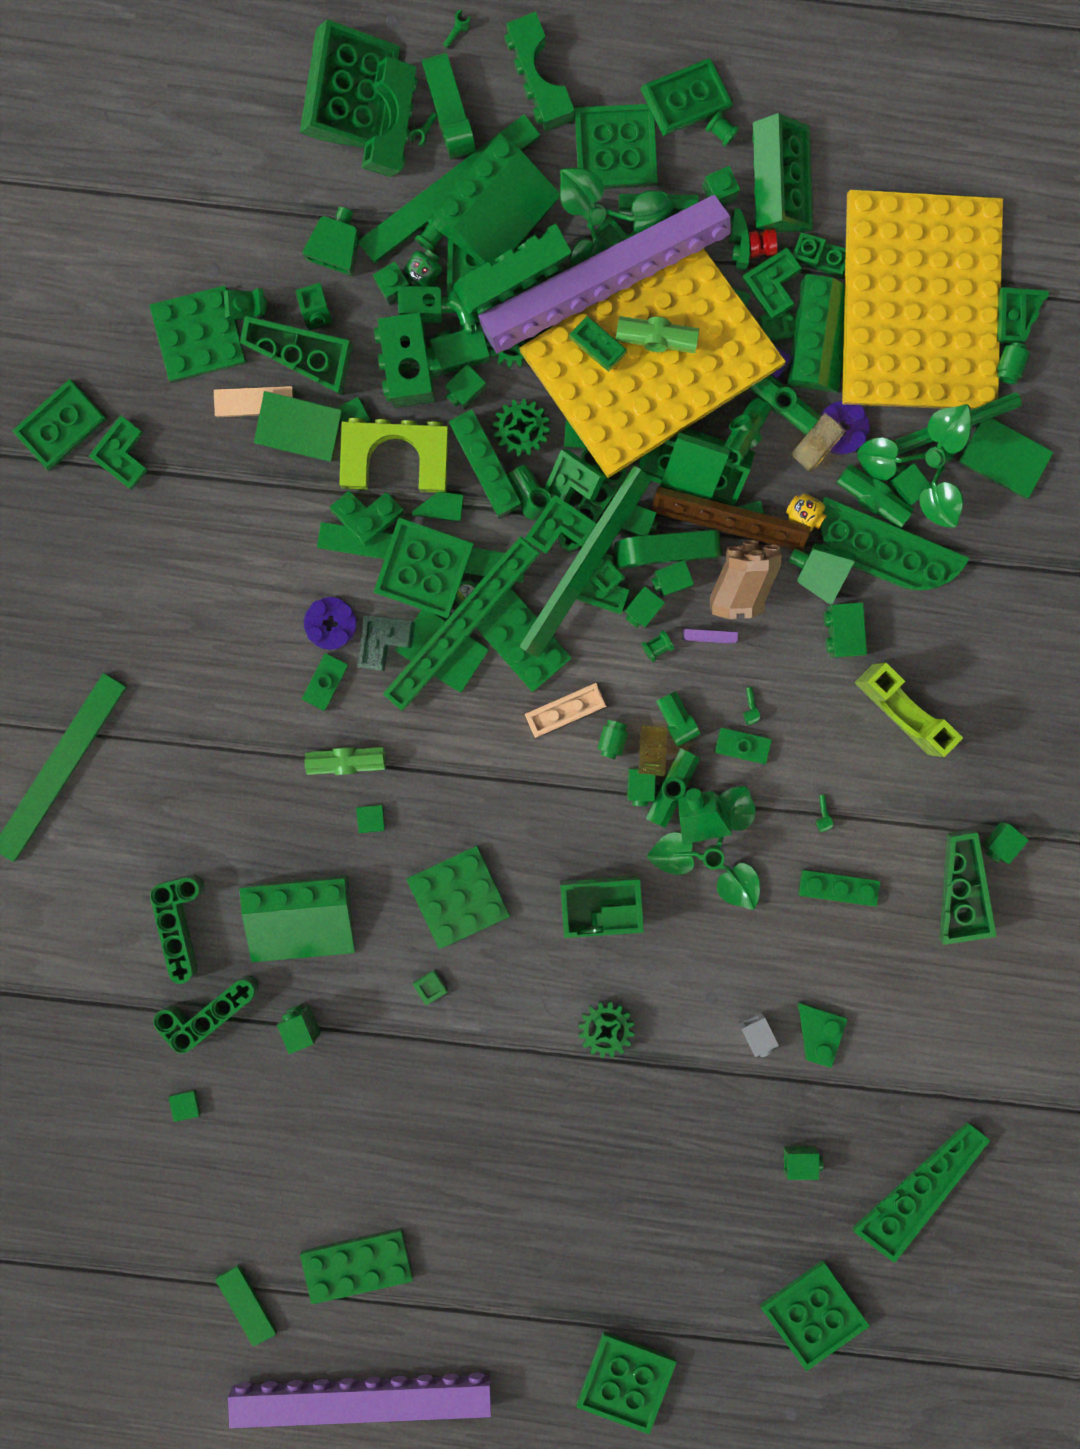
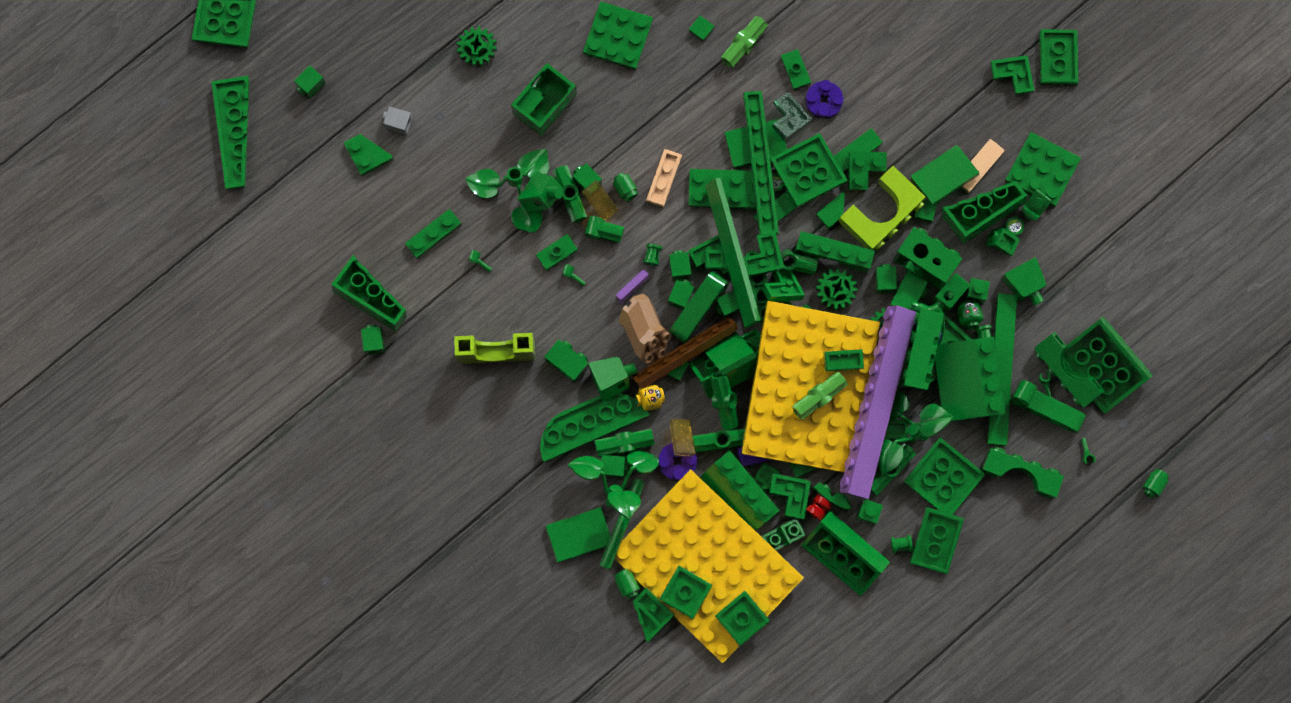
camera: 130 degrees right, 10 degrees down
(286, 309) = (1014, 225): none -> tile
(946, 214) = (742, 618): none -> green tile
(971, 294) = (685, 592): none -> green tile

